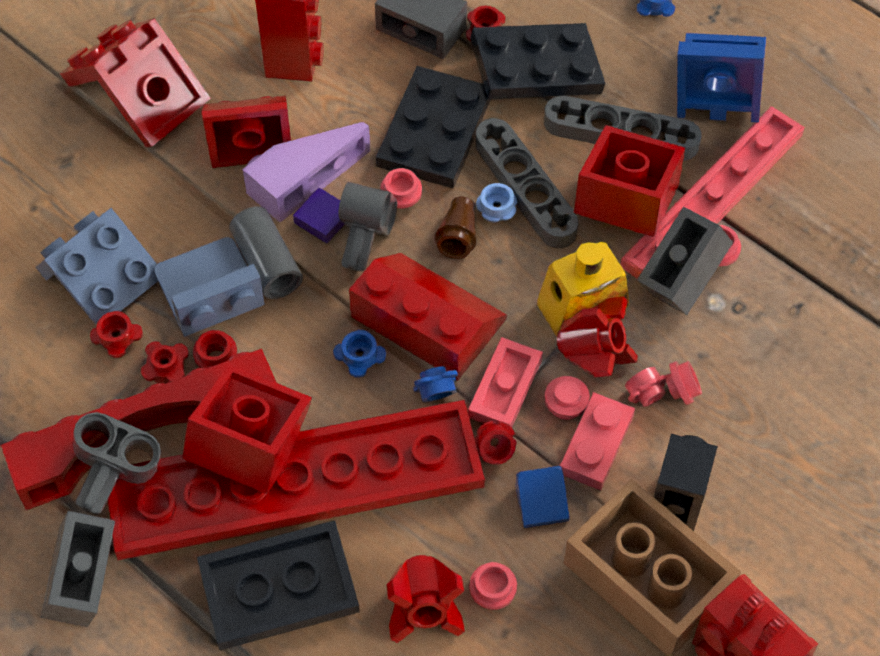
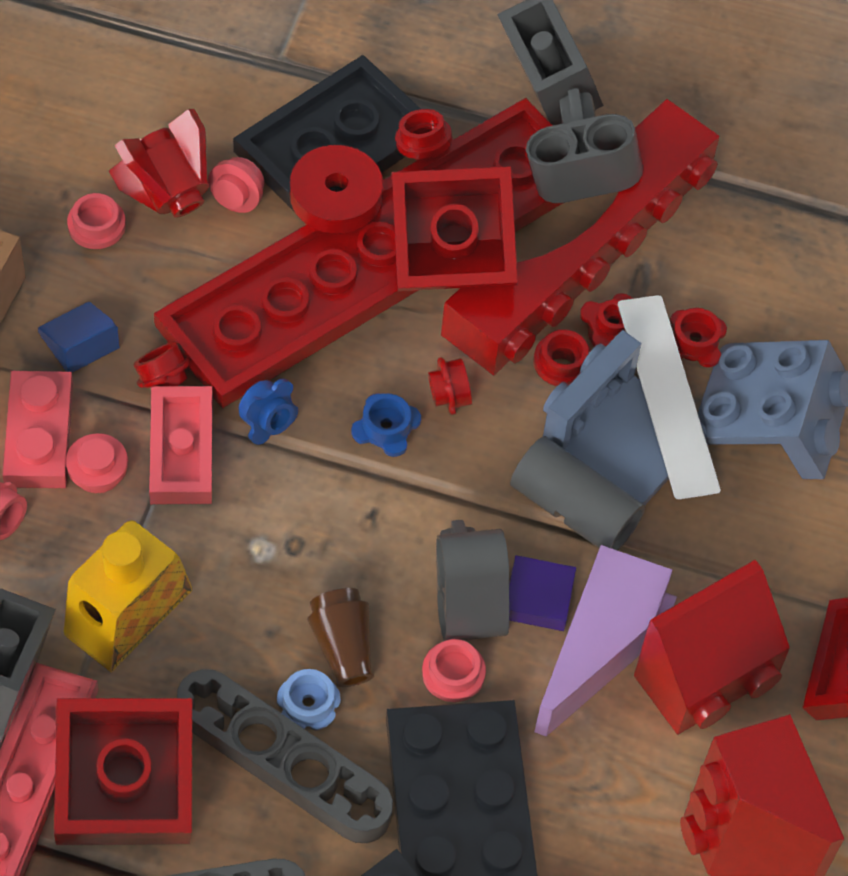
camera: 150 degrees right, 0 degrees up
(168, 280) = (669, 399): none -> white sticker
(209, 523) = (423, 135): none -> red plate
(302, 359) = (450, 385): none -> red plate
(311, 538) = (333, 210): none -> red piece
(374, 568) = (237, 184): none -> coral plate
(423, 312) = (326, 499): red slope -> none
(597, 338) = (75, 520): red brick -> none

